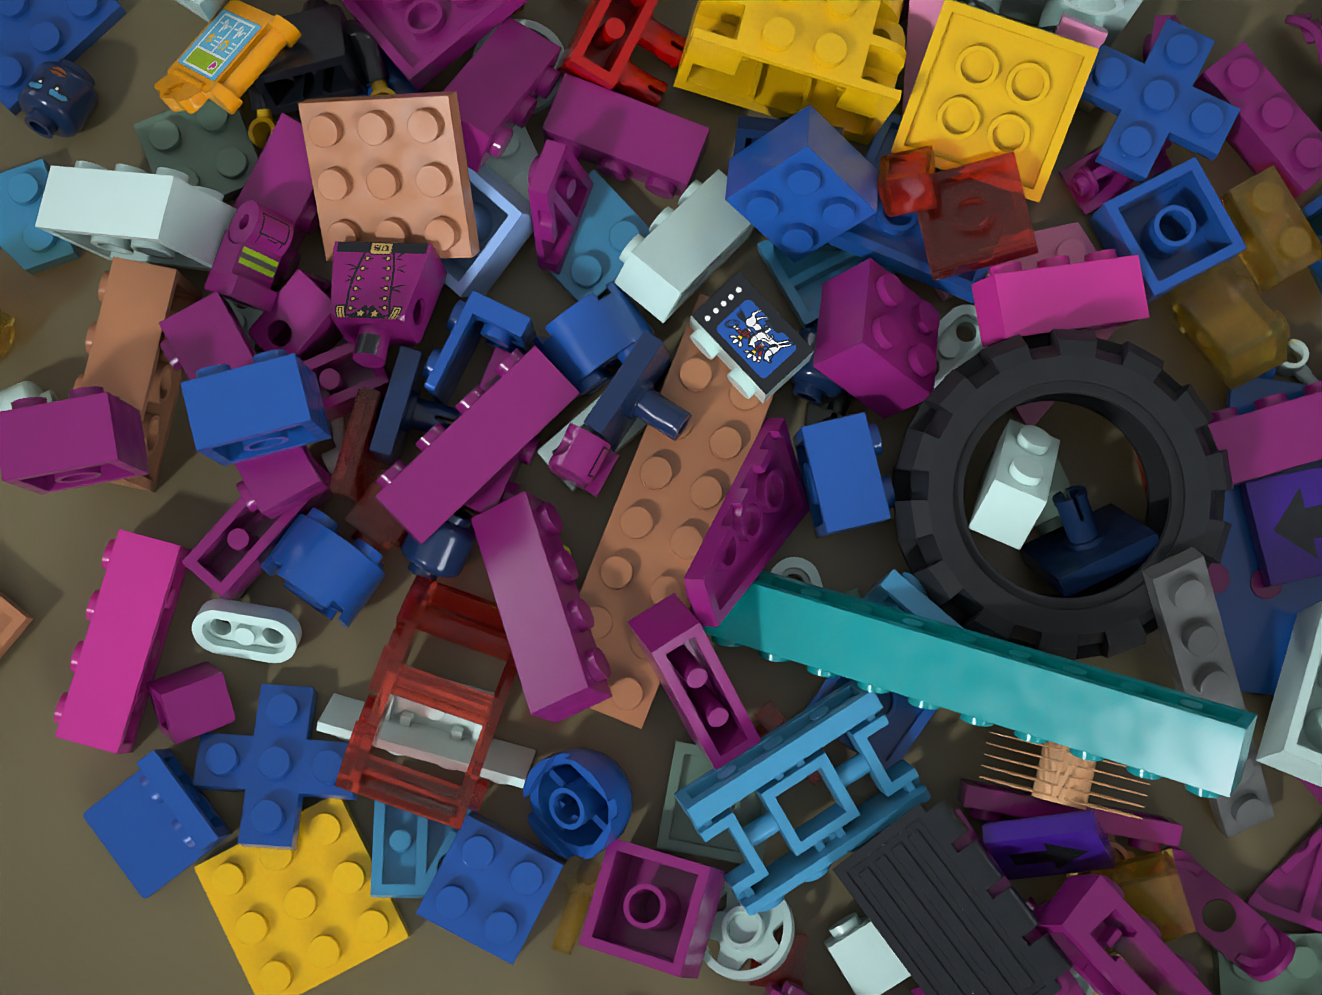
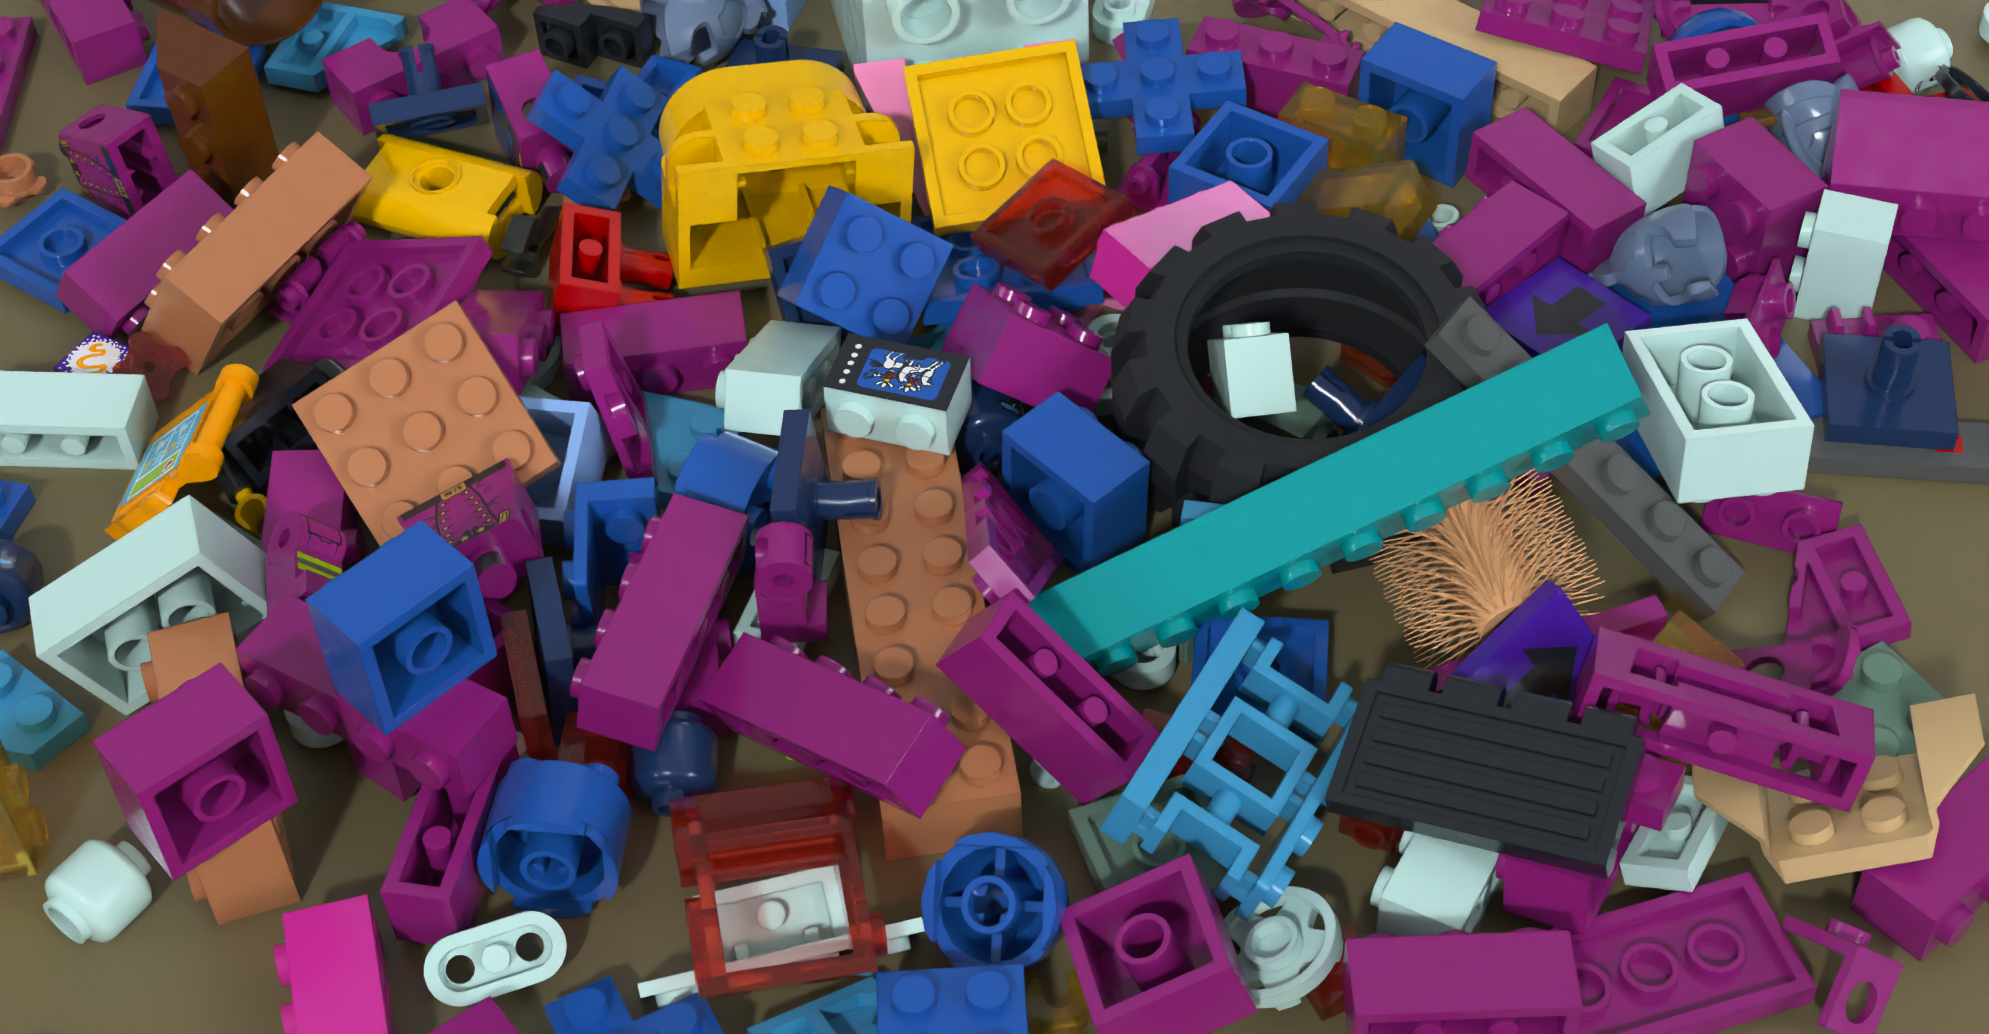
camera: 25 degrees left, 35 degrees down
(908, 181) = (972, 228): clear red slope -> none

